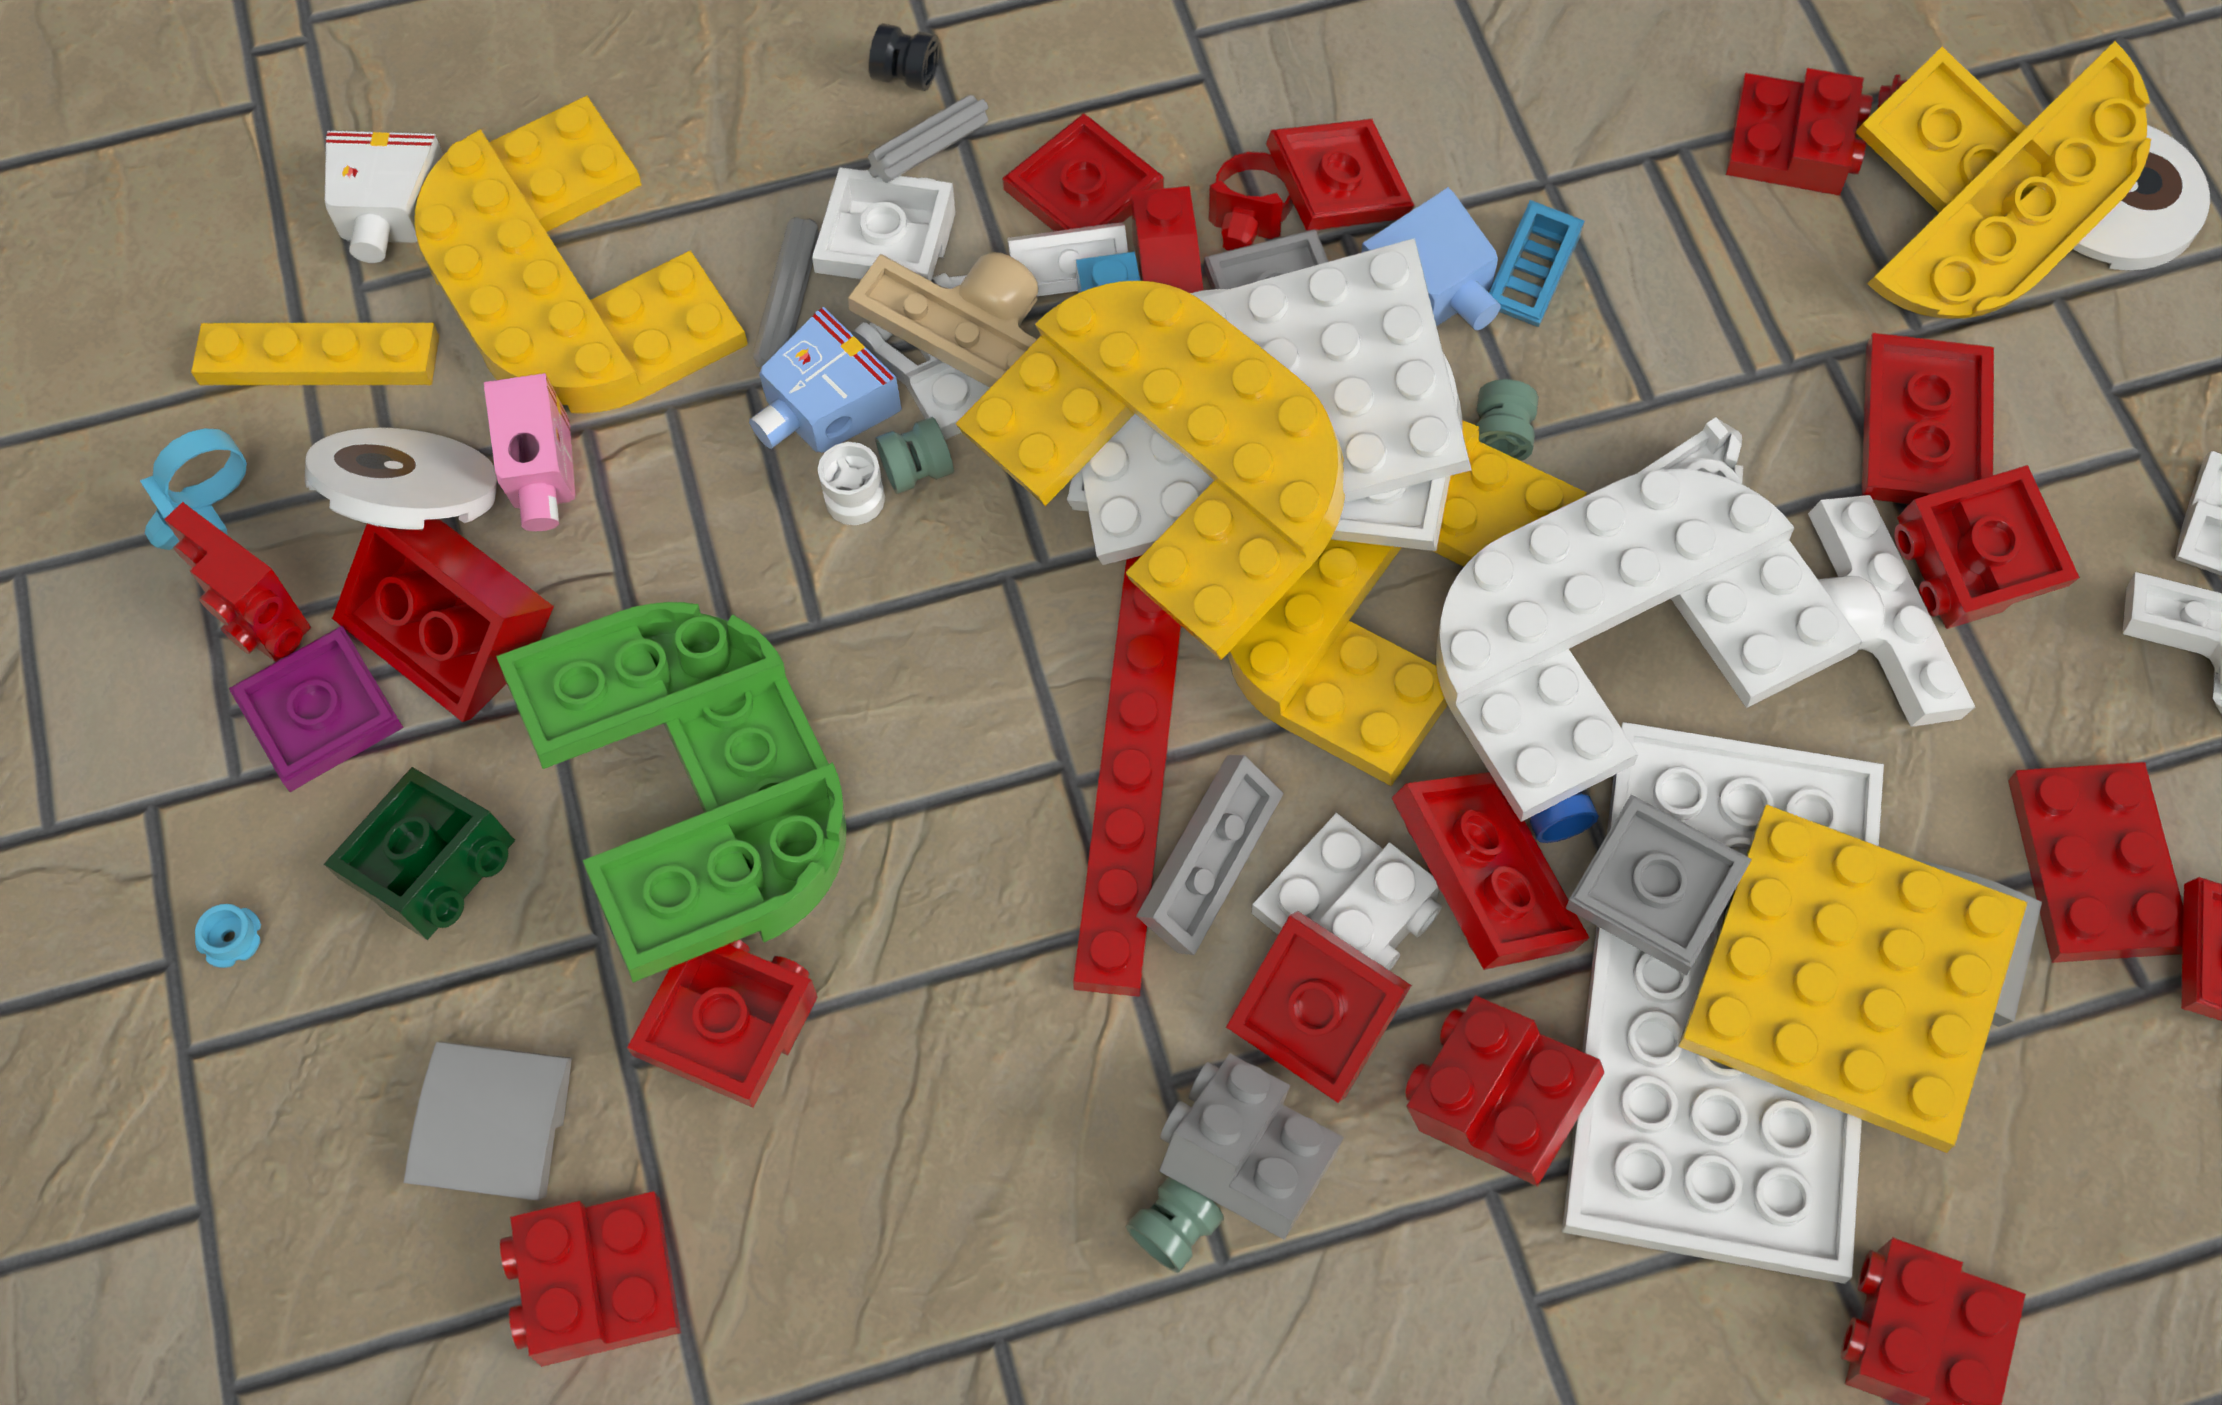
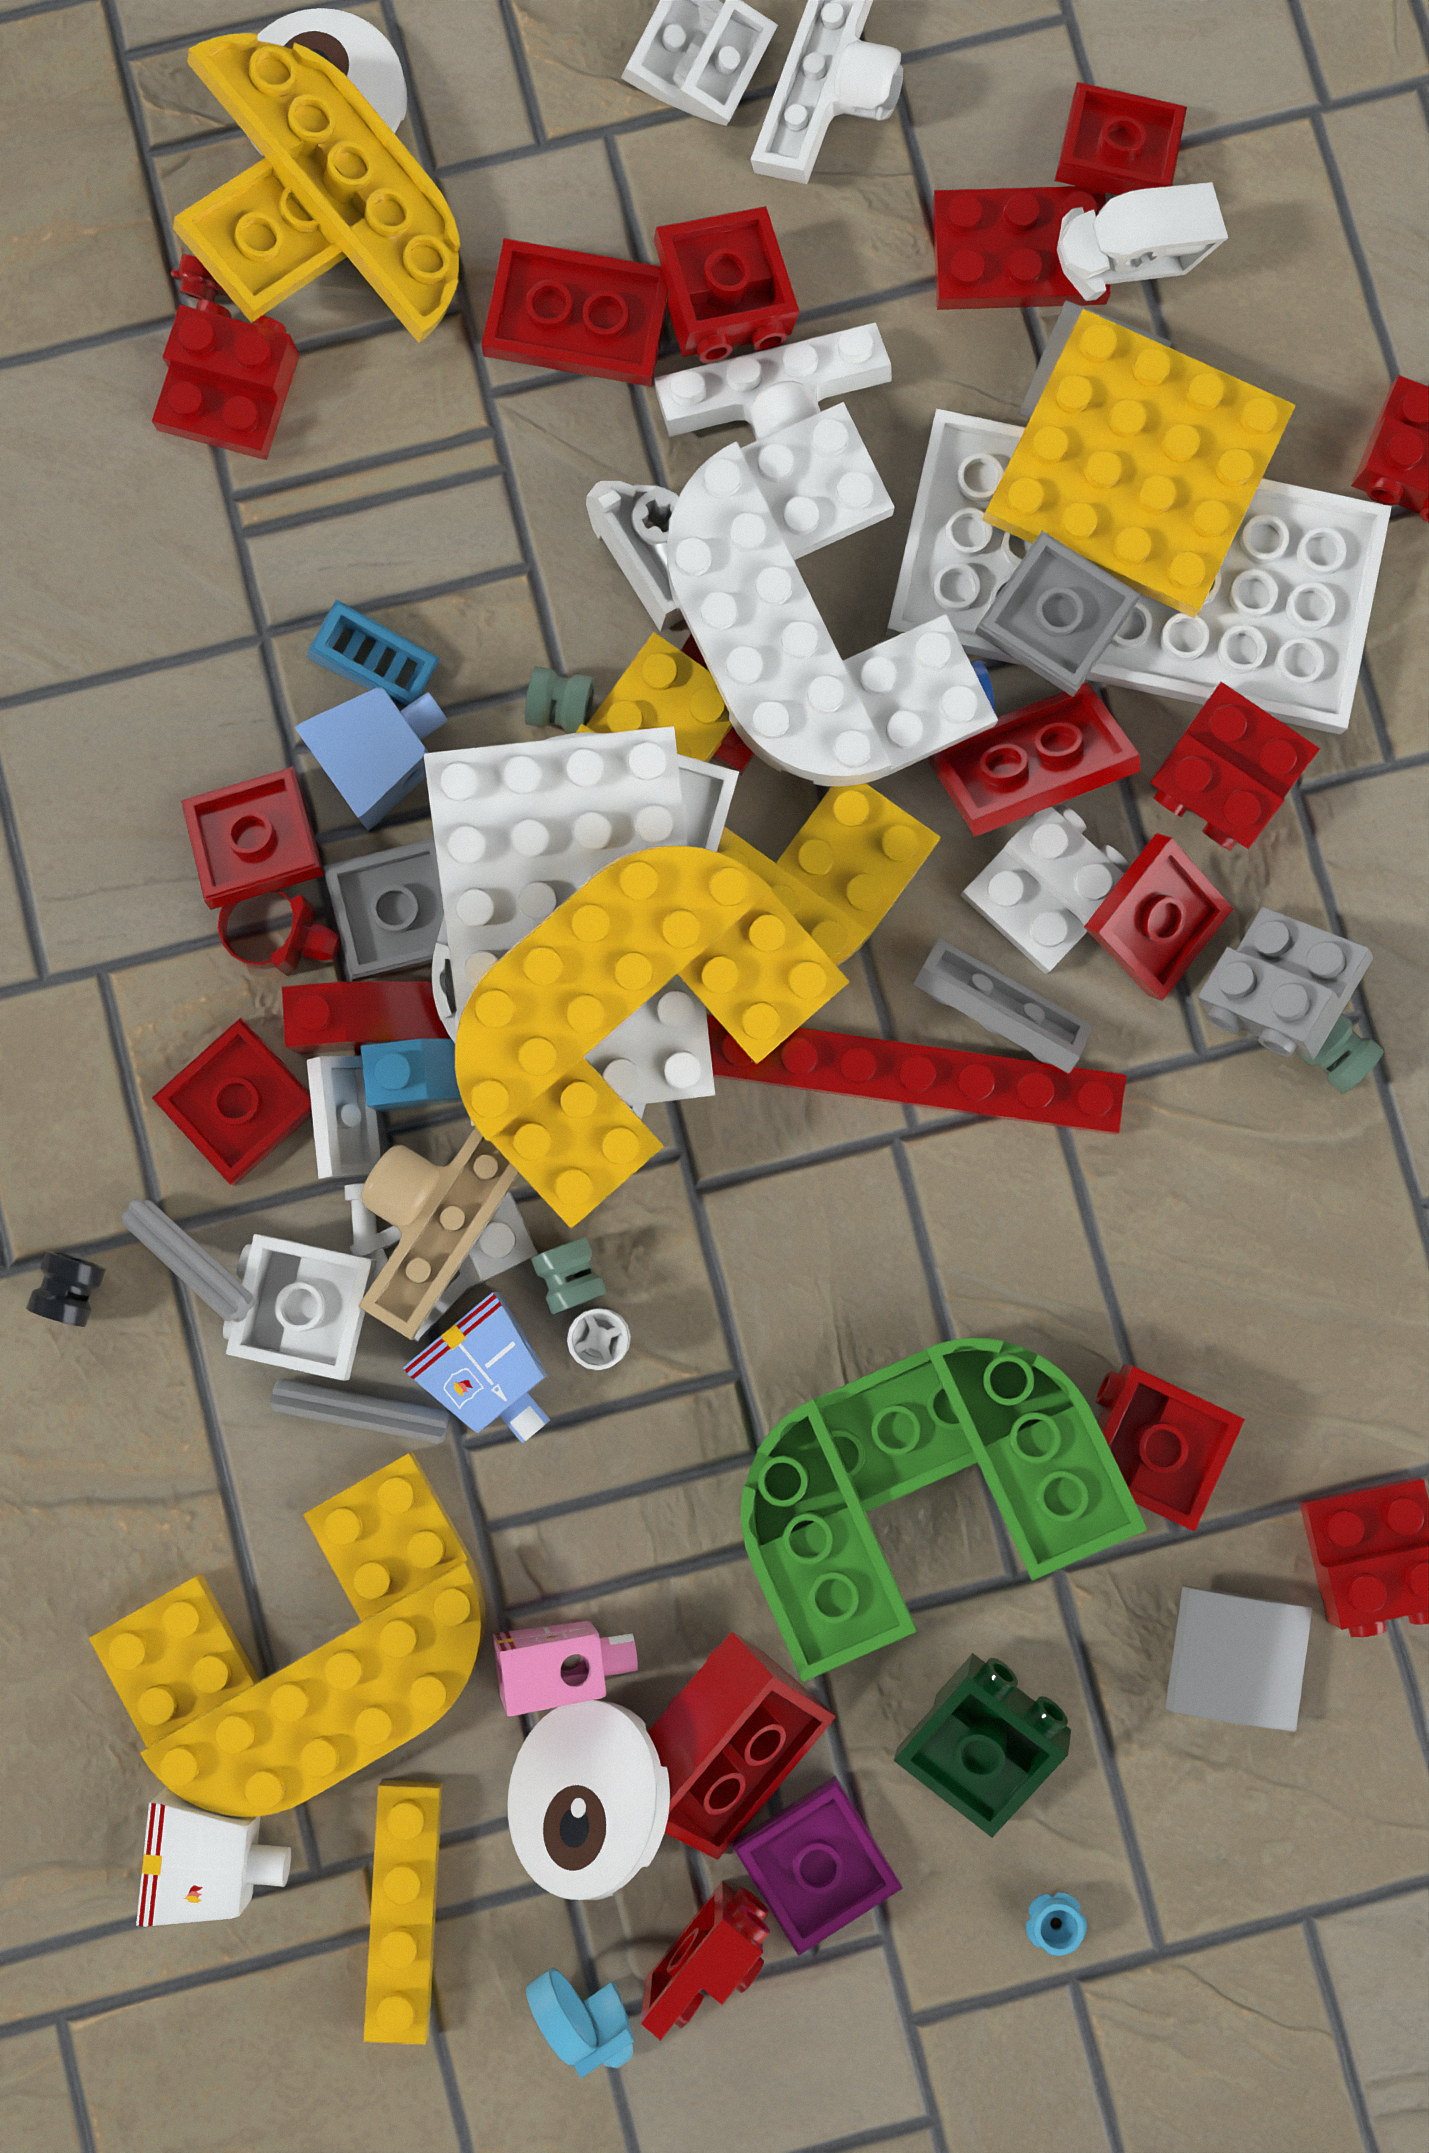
camera: 90 degrees left, 20 degrees up
(2128, 964) = (1140, 237): none -> white piece

